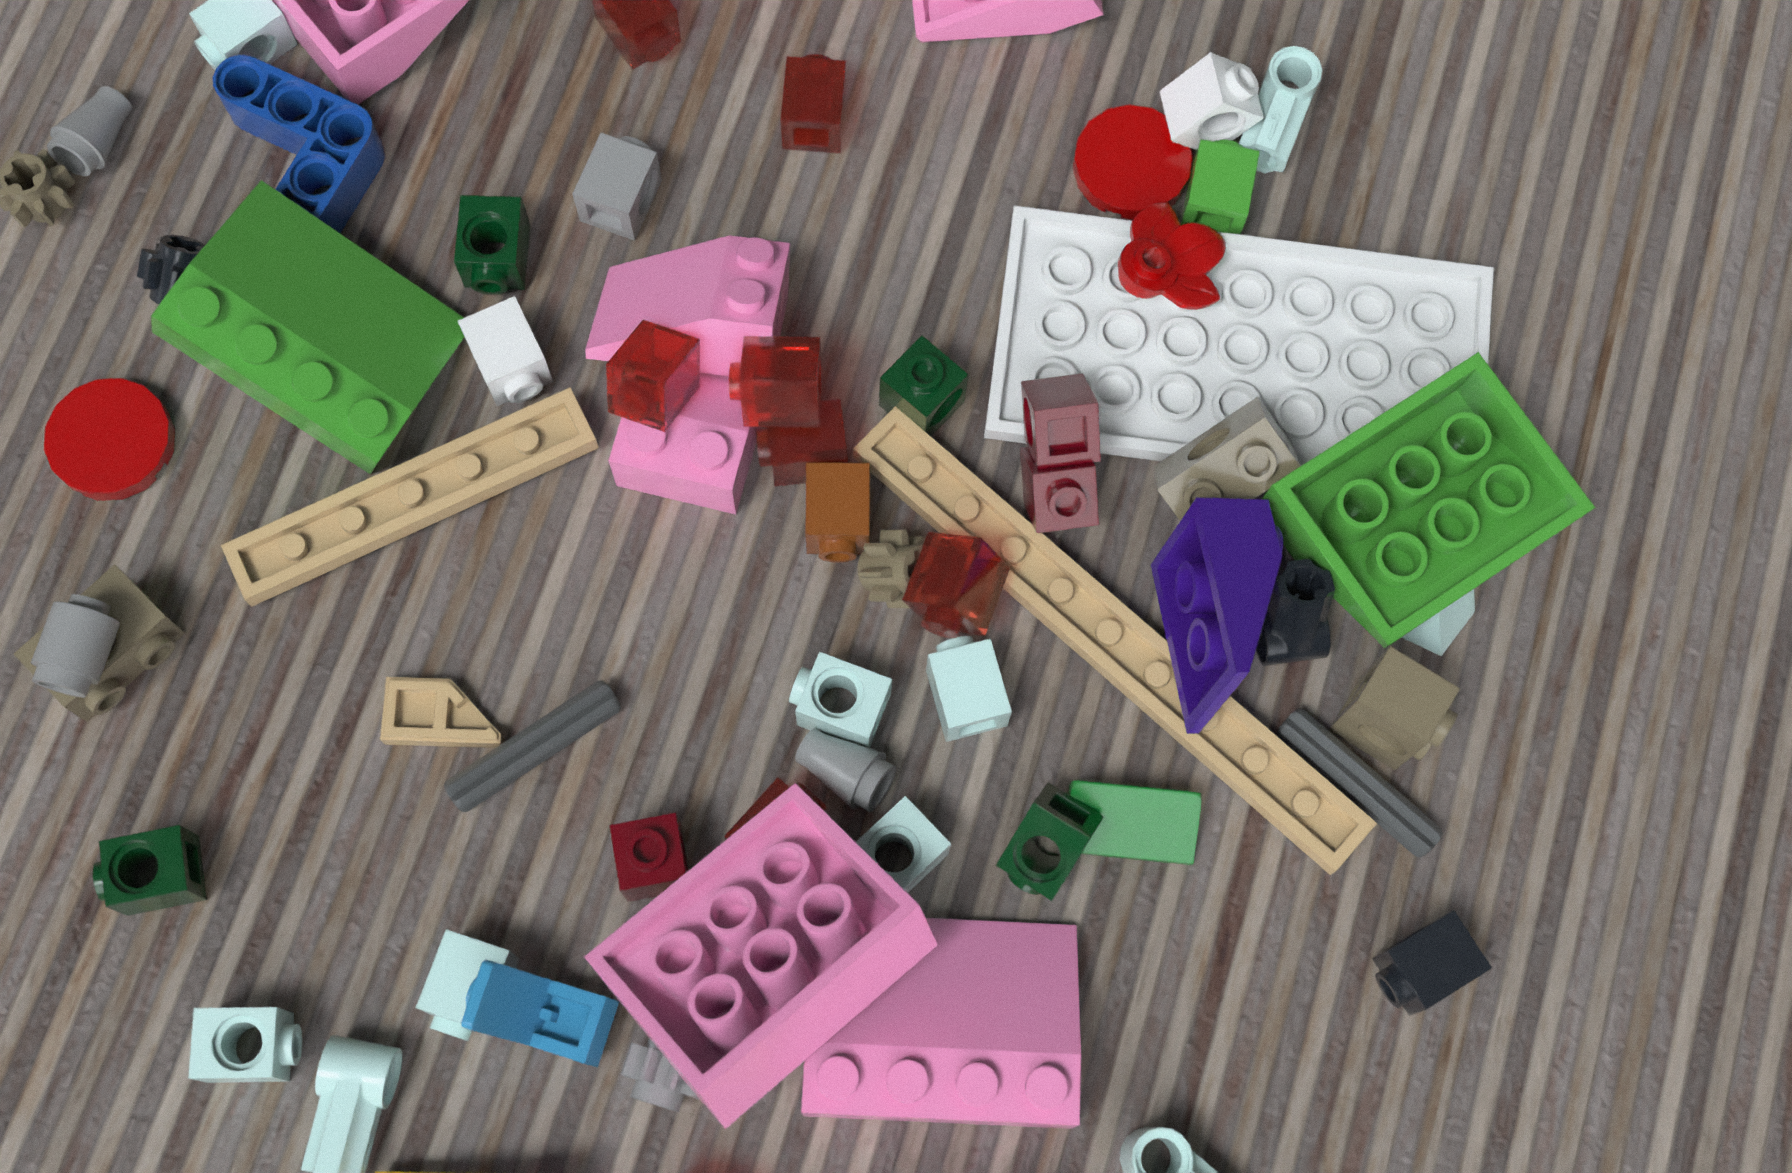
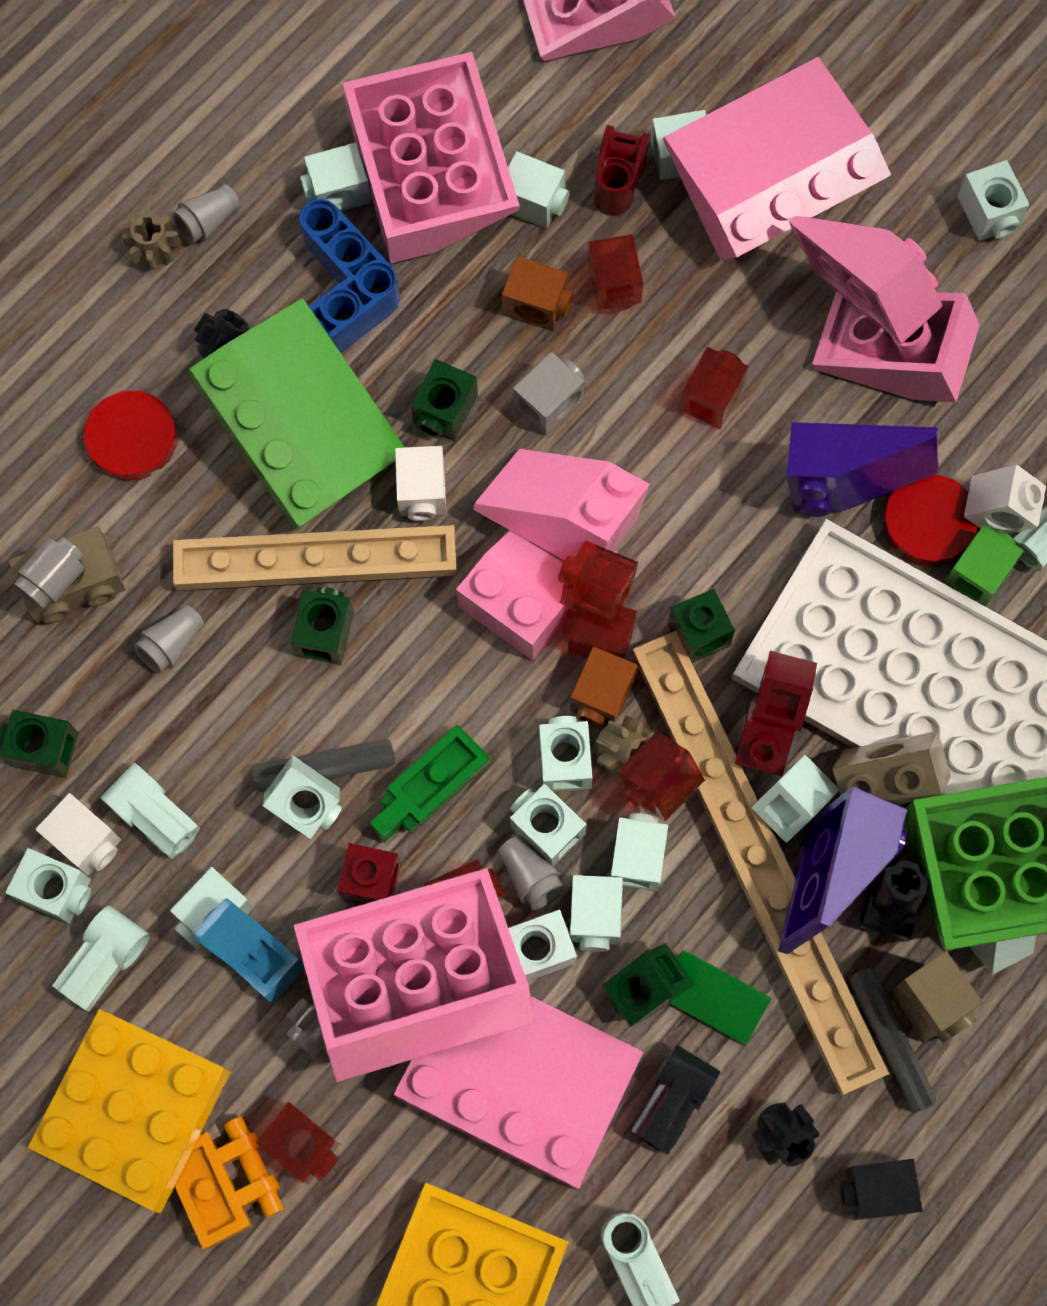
camera: 30 degrees right, 0 degrees up
(256, 963) = (80, 835): none -> white brick
(266, 671) = (167, 640): none -> light grey cone
(322, 889) = (143, 804): none -> light aqua piece
(433, 715) = (266, 716): tan tile -> none
(465, 599) = (322, 645): none -> dark green brick
(504, 775) = (298, 777): none -> light aqua brick
(551, 74) = (536, 294): none -> dark orange brick
(653, 375) = (511, 542): clear red brick -> none
(675, 712) = (430, 783): none -> green hinge
(832, 633) = (571, 774): none -> light aqua brick
(947, 780) = (596, 912): none -> light aqua brick
(1024, 122) = (854, 463): none -> dark purple slope
(1126, 545) = (795, 798): none -> light aqua brick
(1143, 947) = (679, 1091): none -> black piece
(1170, 259) = (928, 604): red plate -> none
(1290, 948) = (785, 1134): none -> black gear

